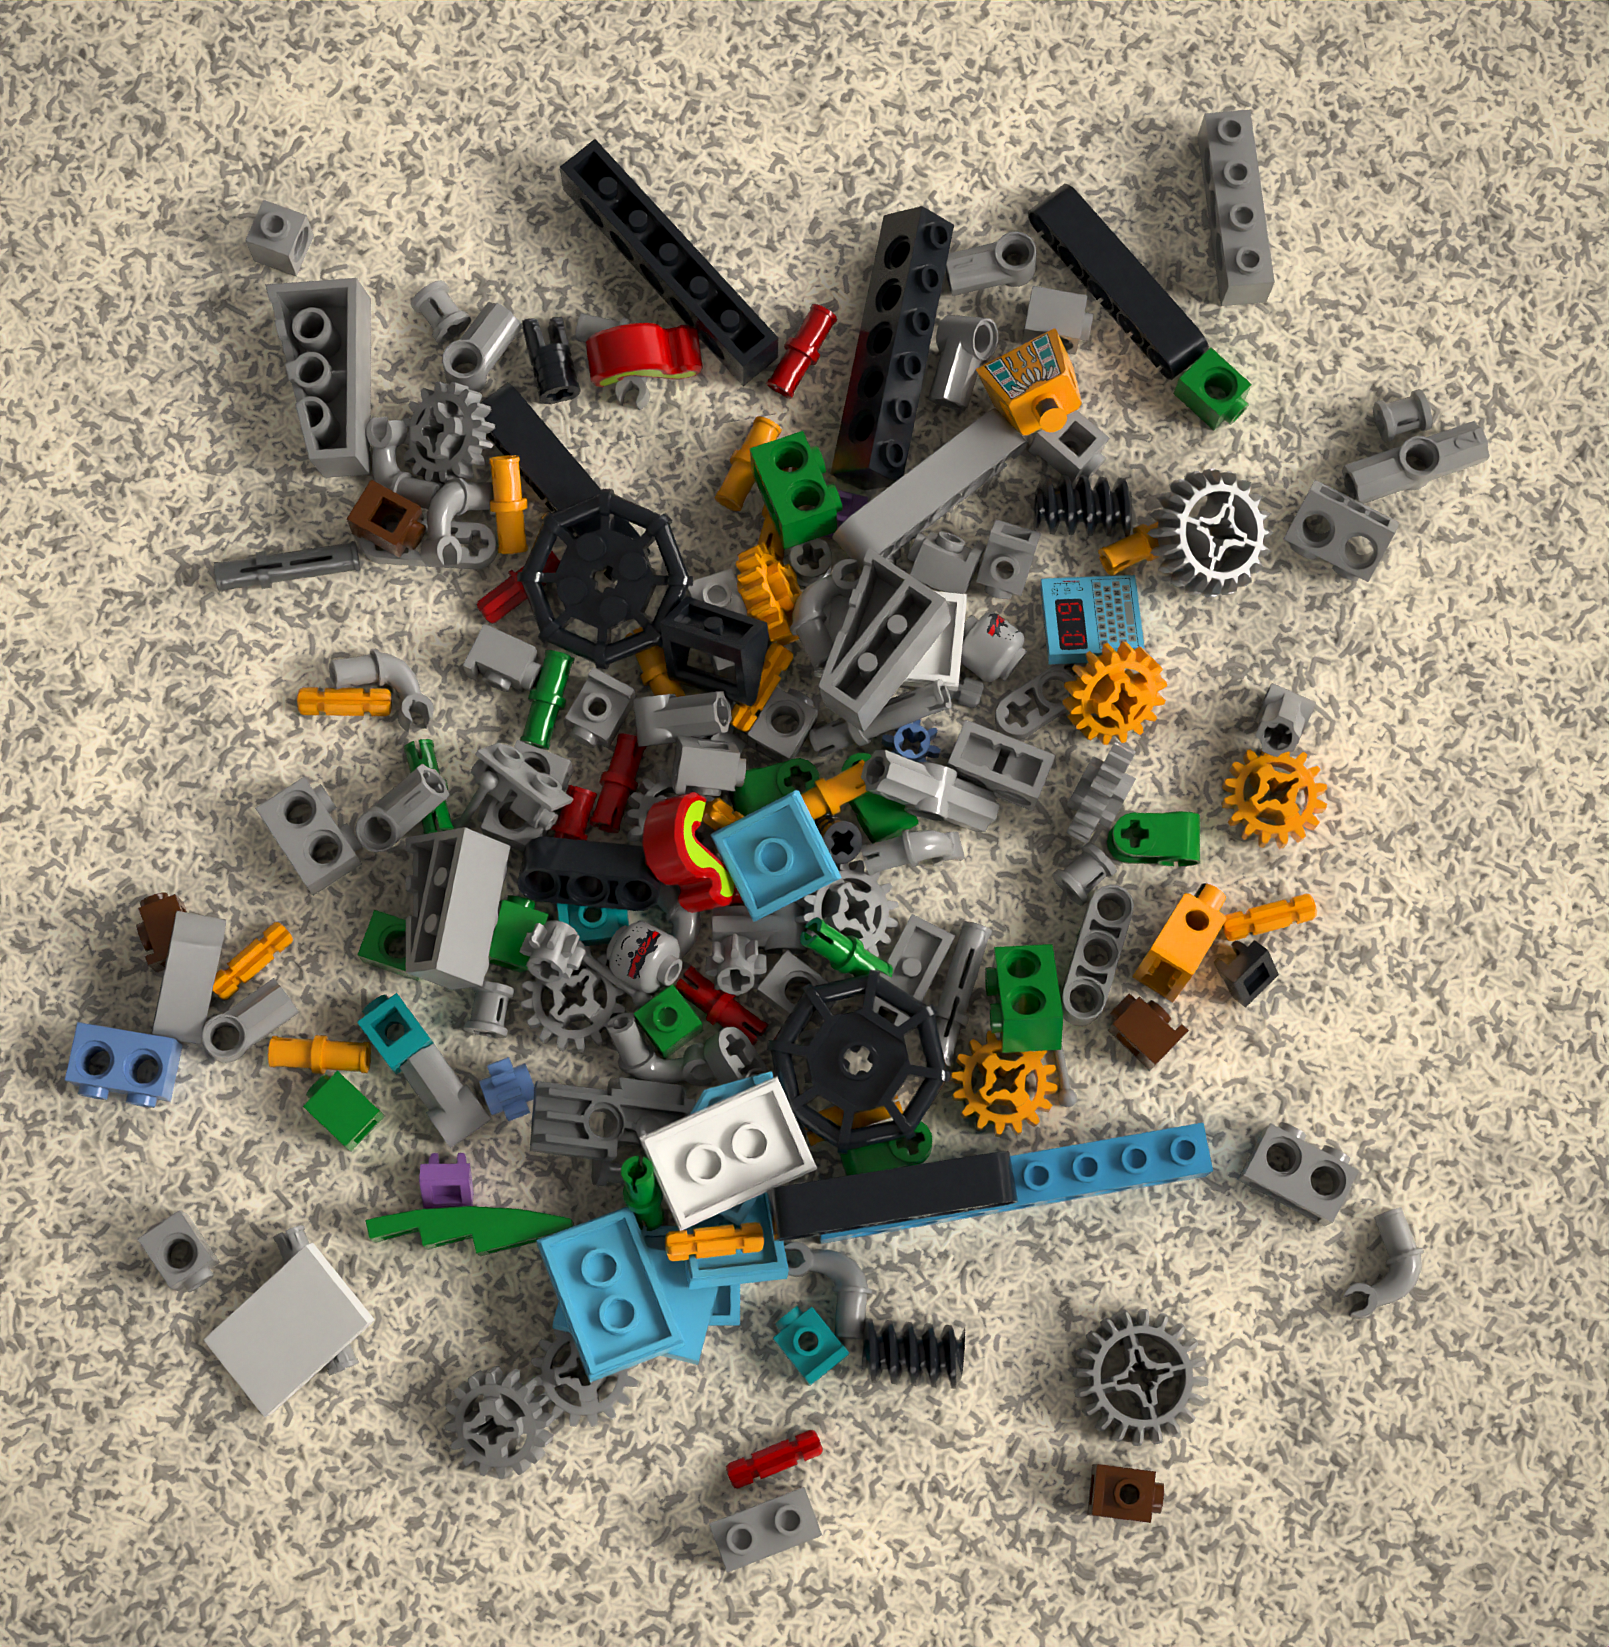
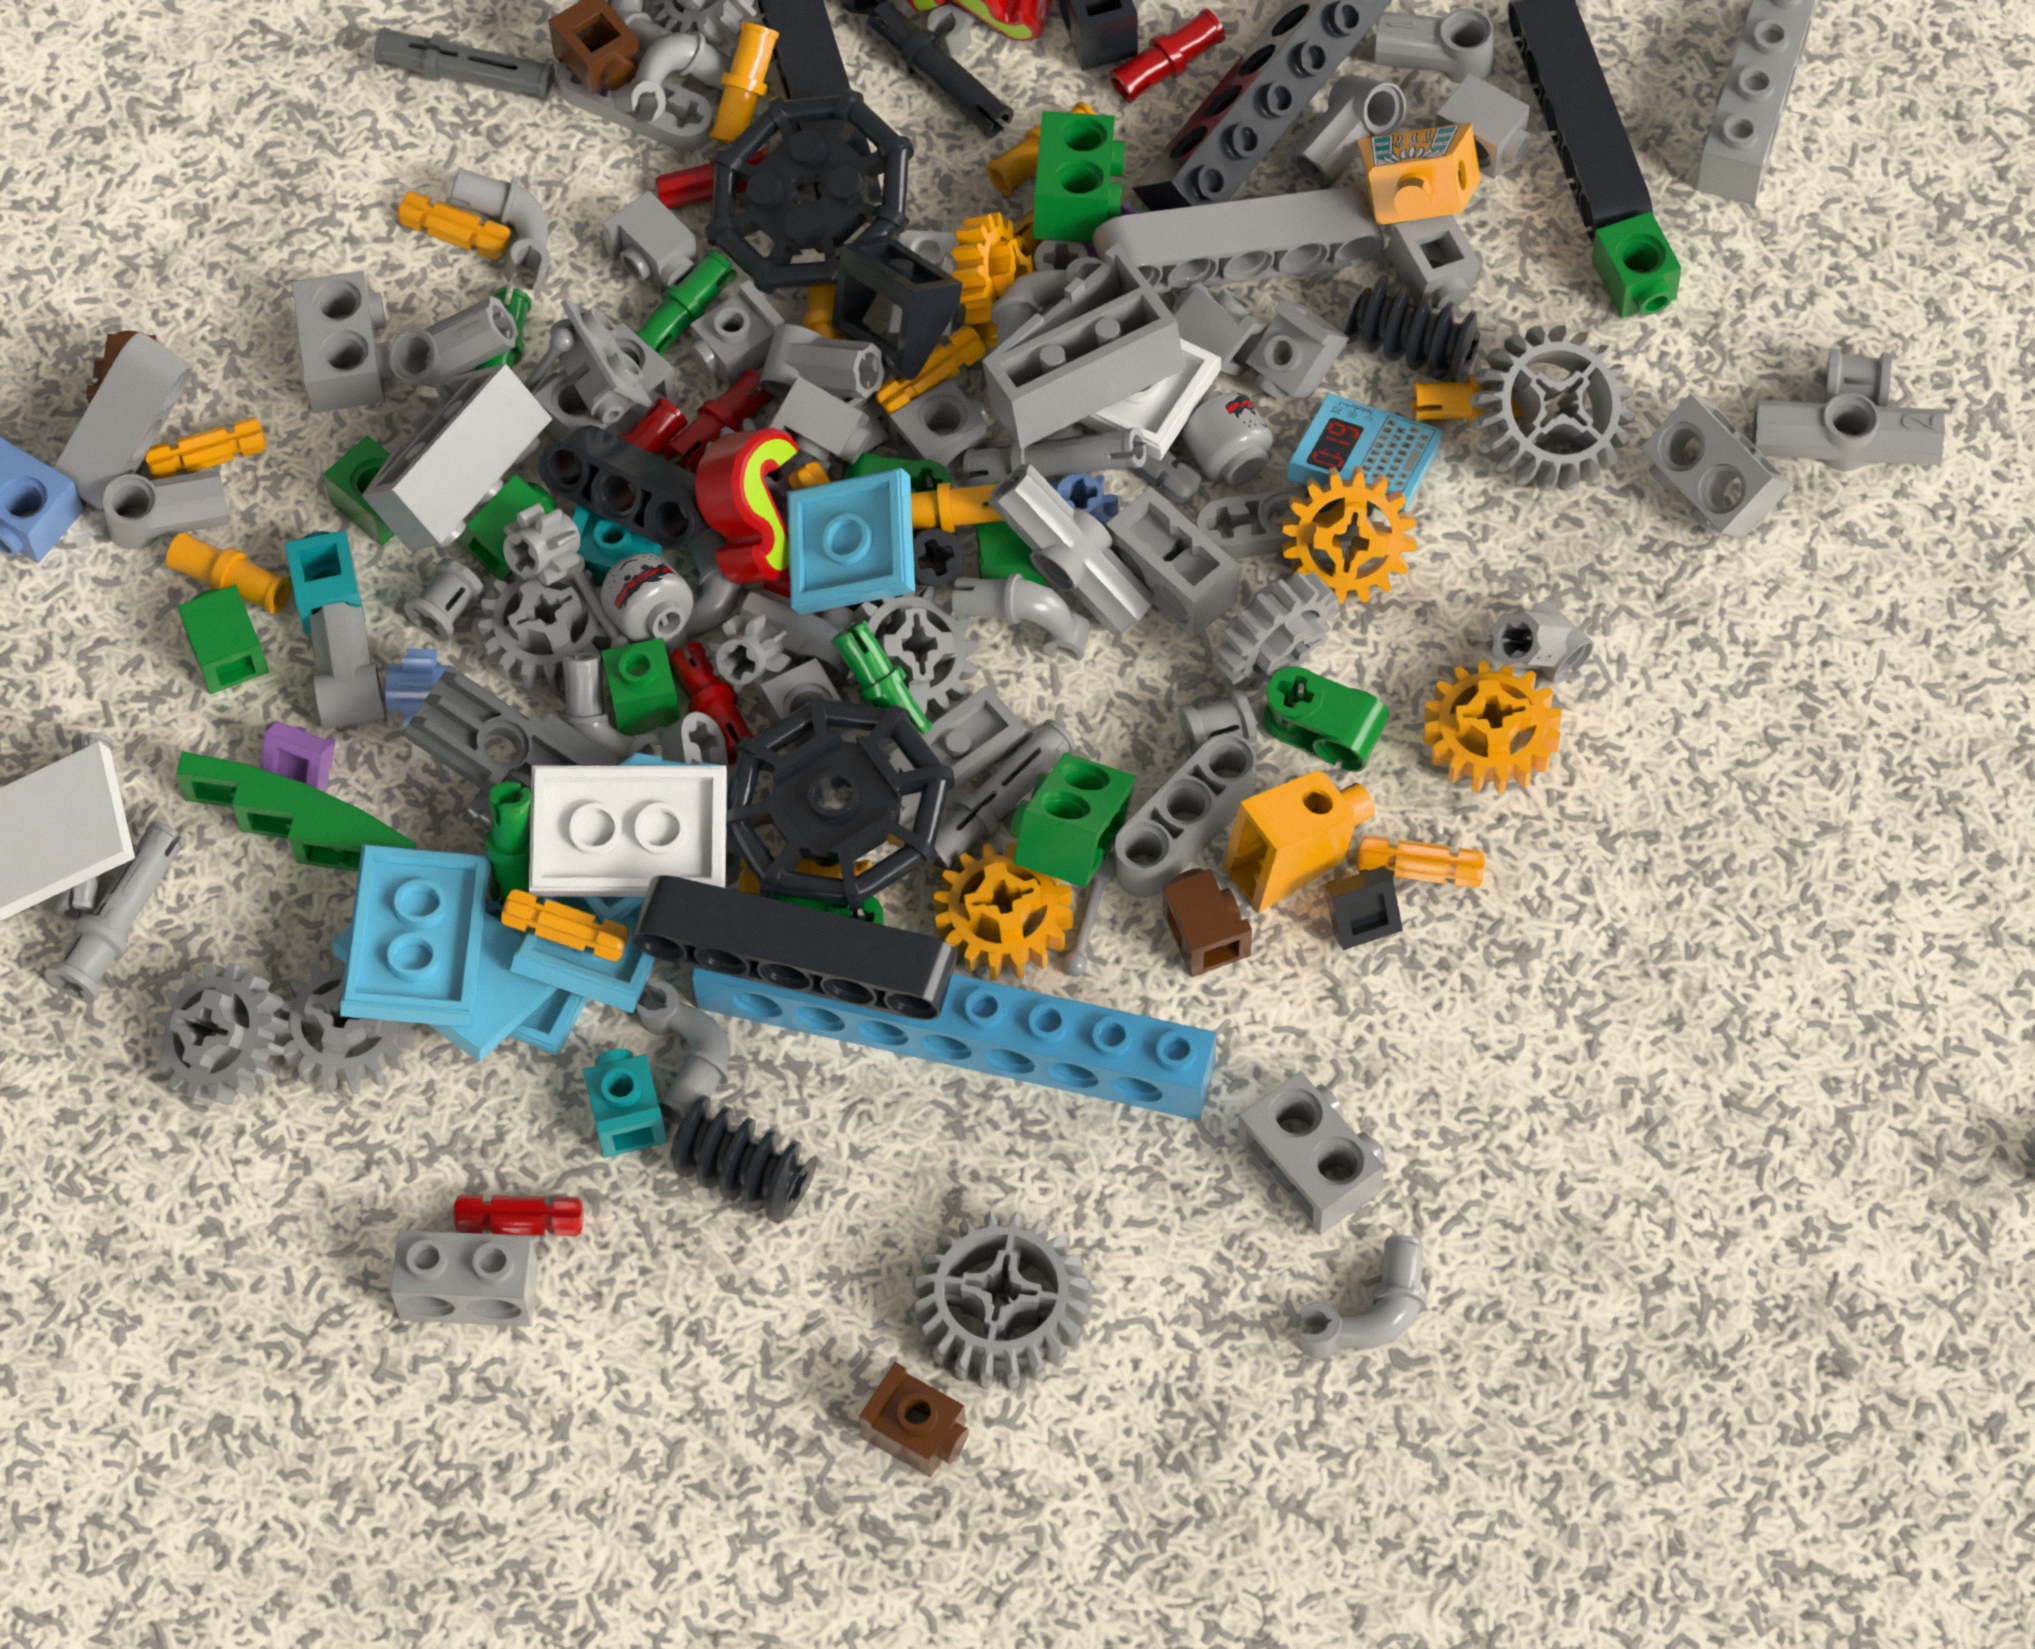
camera: 30 degrees right, 15 degrees down
(372, 1377) = (103, 934): none -> light grey pin
(640, 428) = (921, 53): none -> black pin

